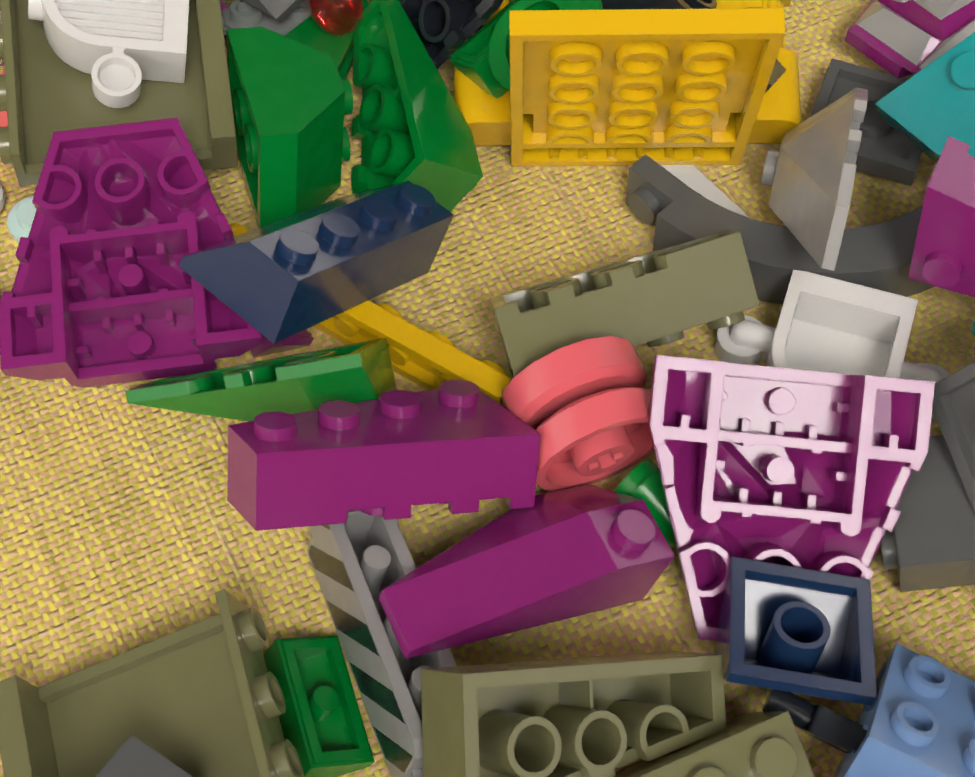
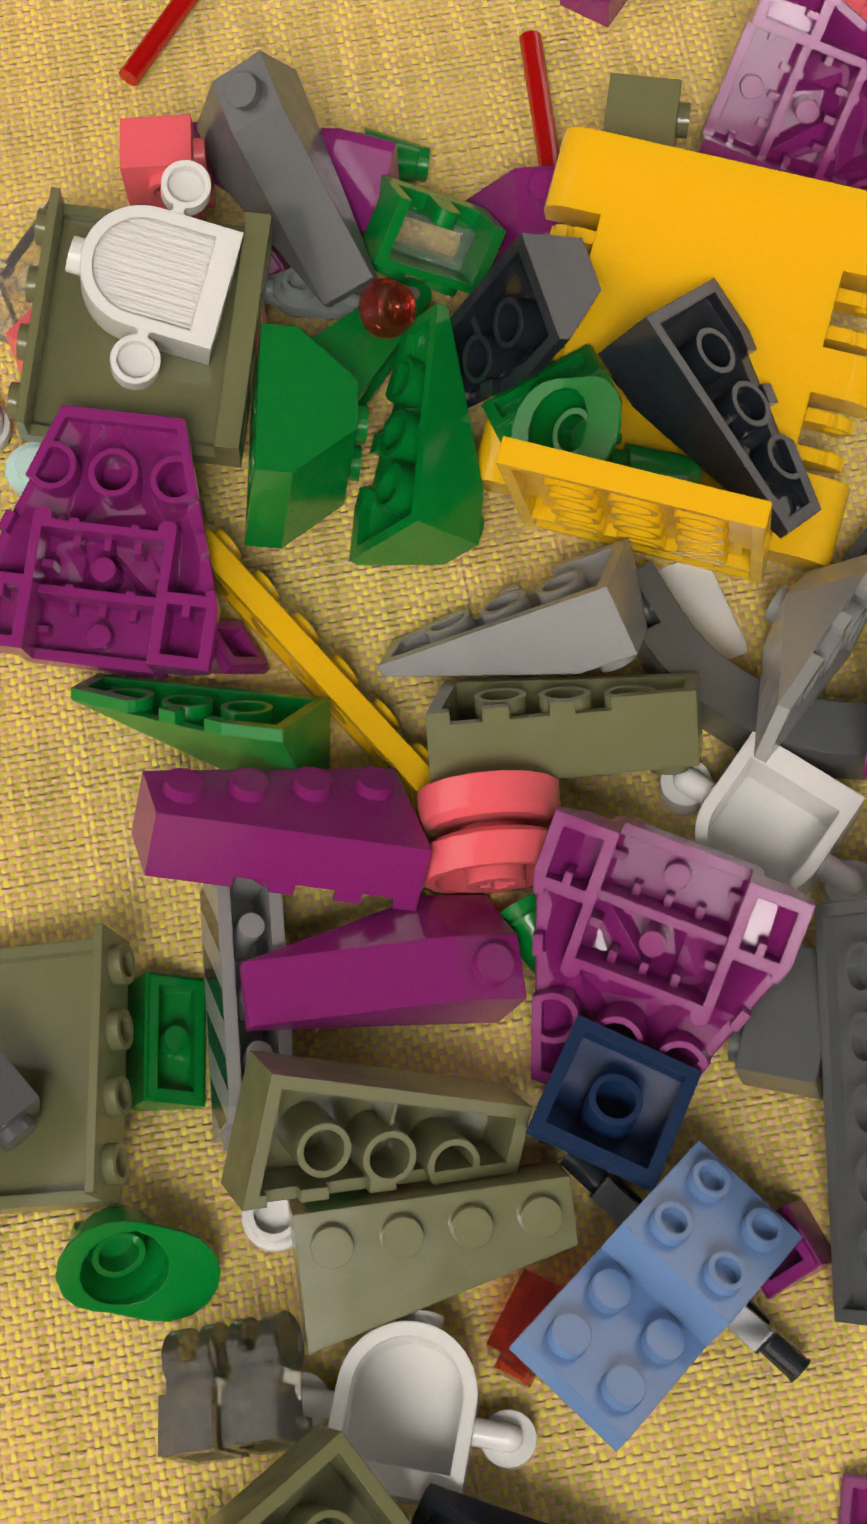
camera: 20 degrees right, 10 degrees up
(324, 258) = (288, 602): slope -> none
(593, 217) = (567, 625): none -> light grey wedge

